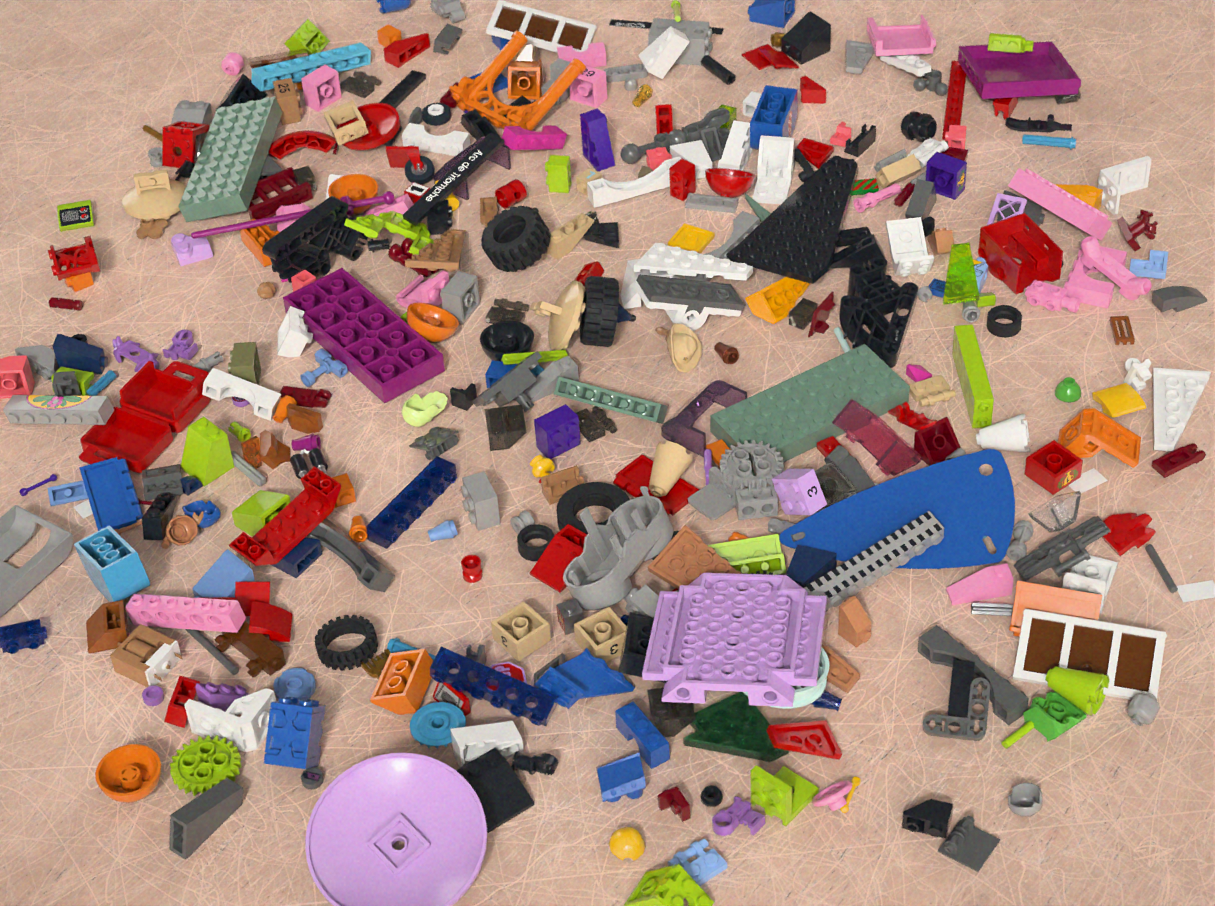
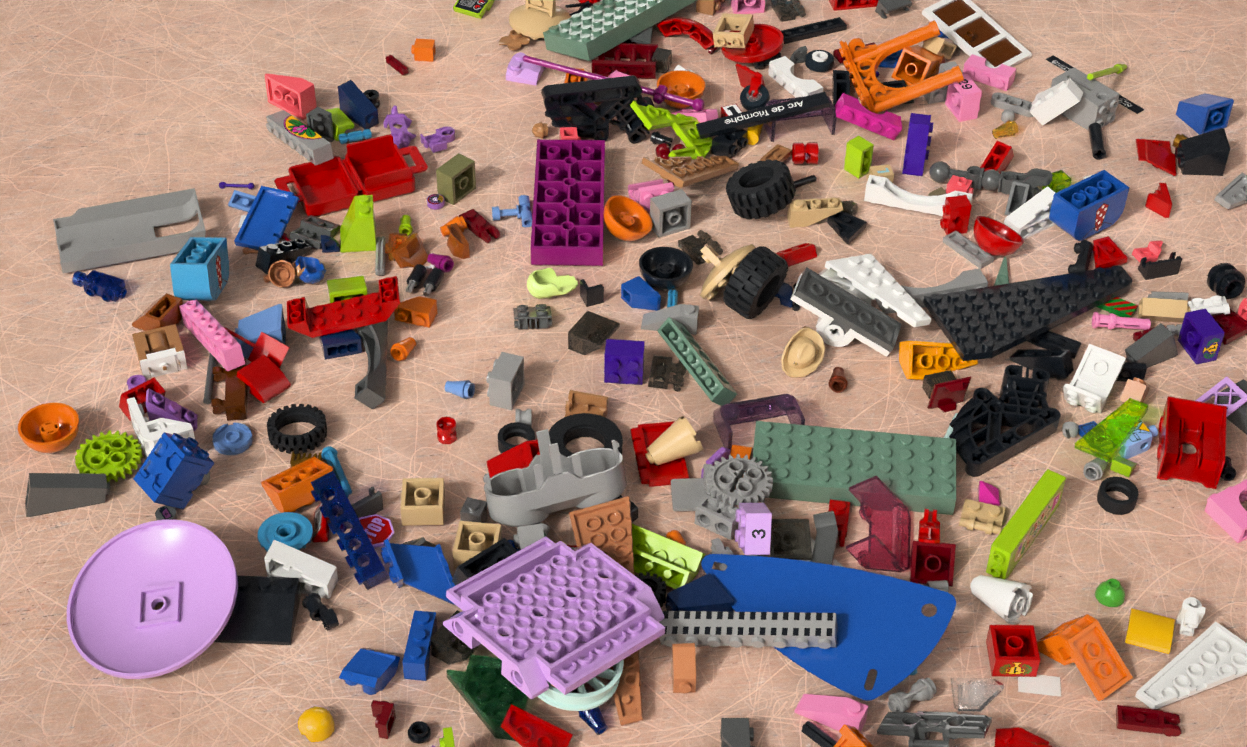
camera: 35 degrees right, 0 degrees up
(41, 360) = (329, 94): light grey slope -> none
(78, 255) = (435, 33): red fence -> none
(207, 363) = (436, 161): light grey pin -> none
(223, 385) = (421, 181): white arch -> none
(293, 334) = (518, 172): white brick -> none
(411, 502) = (461, 351): clear blue brick -> none
(512, 385) = (628, 303): dark grey brick -> none
(541, 466) = (586, 382): yellow animal -> none
(547, 356) = (674, 292): lime axle -> none
(691, 238) = (916, 270): yellow tile -> none
(695, 153) = (990, 200): white slope -> none
(774, 169) = (1050, 250): white bracket -> none
(1051, 297) = (1187, 500): bright pink brick -> none
(1123, 338) = (1221, 580): dark orange tile -> none

